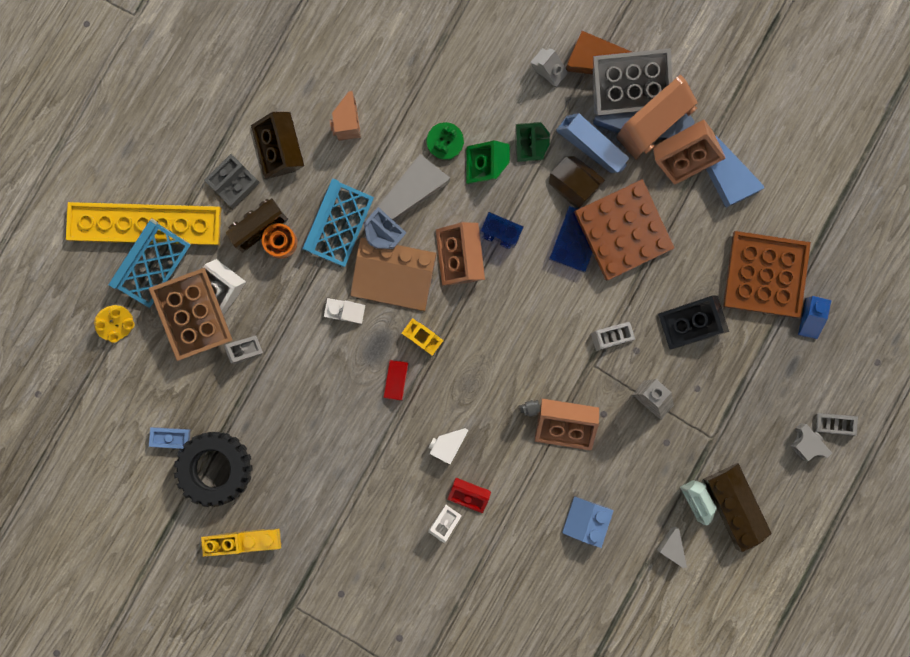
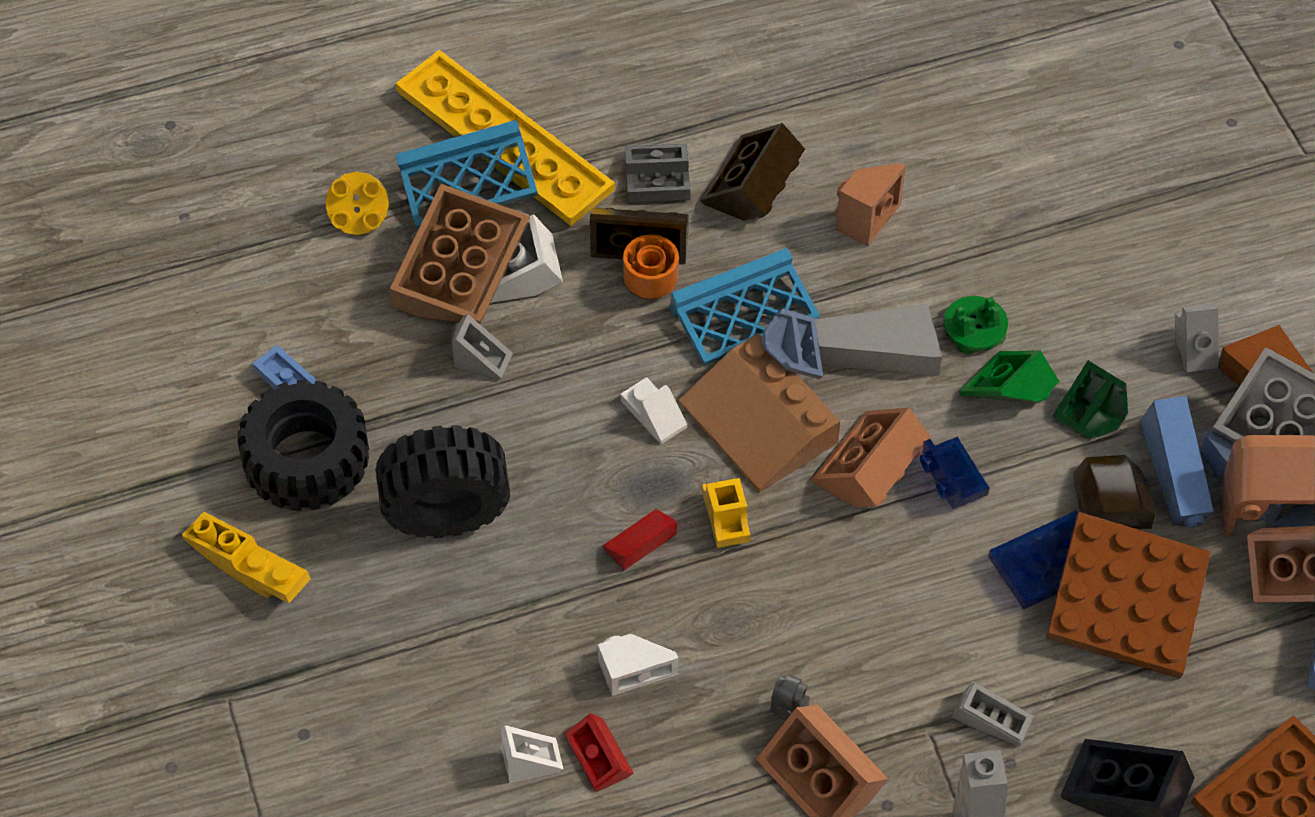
camera: 40 degrees right, 30 degrees down
(297, 442) = (442, 481): none -> black tyre

